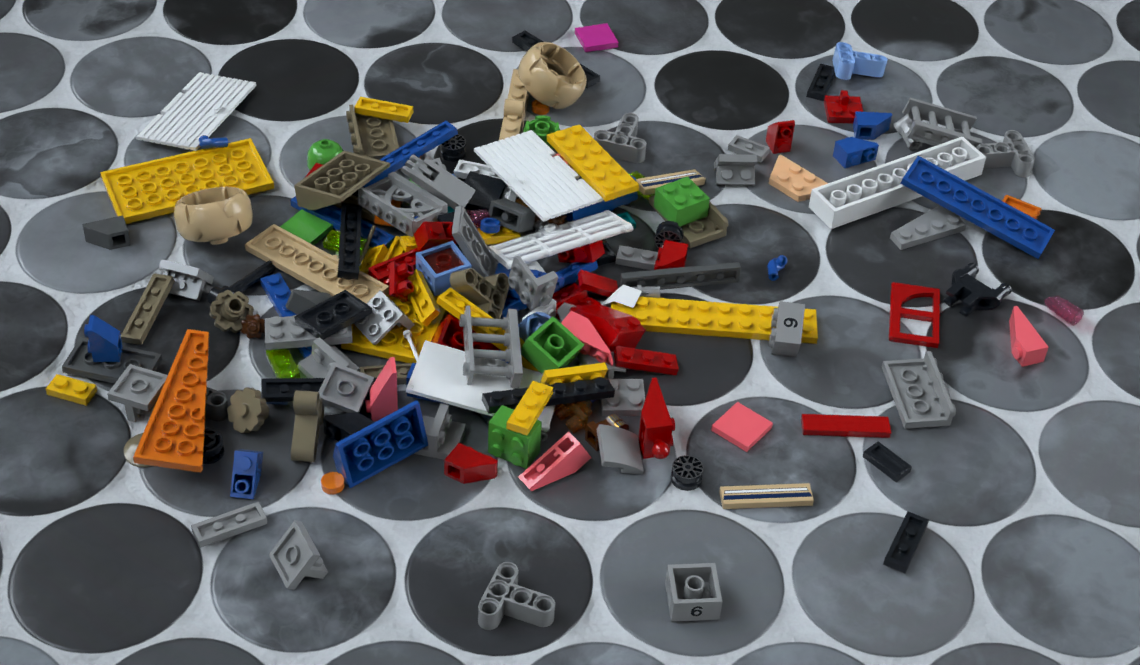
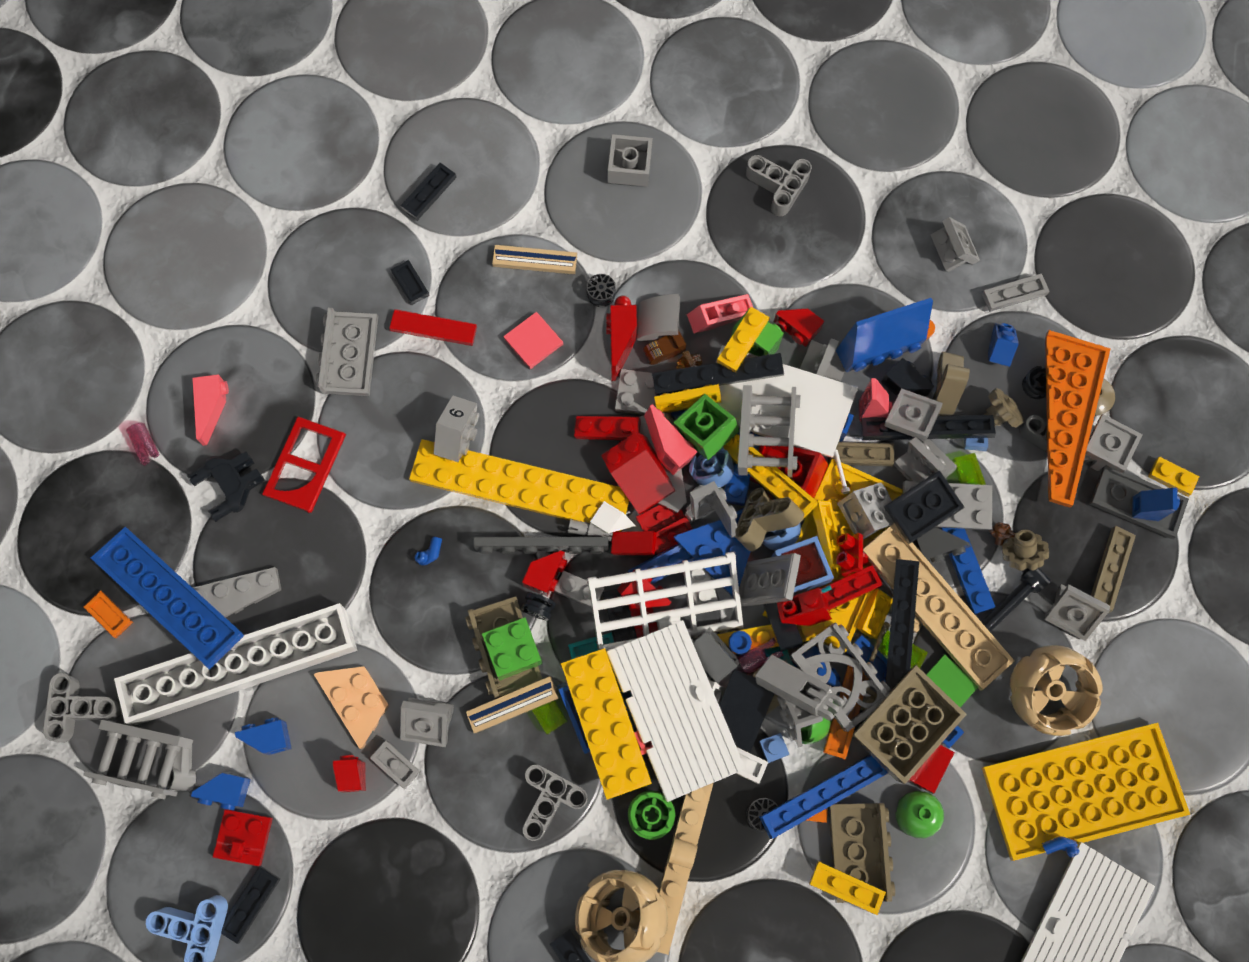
camera: 170 degrees left, 30 degrees up
(107, 233) = (1165, 700): dark grey slope -> none

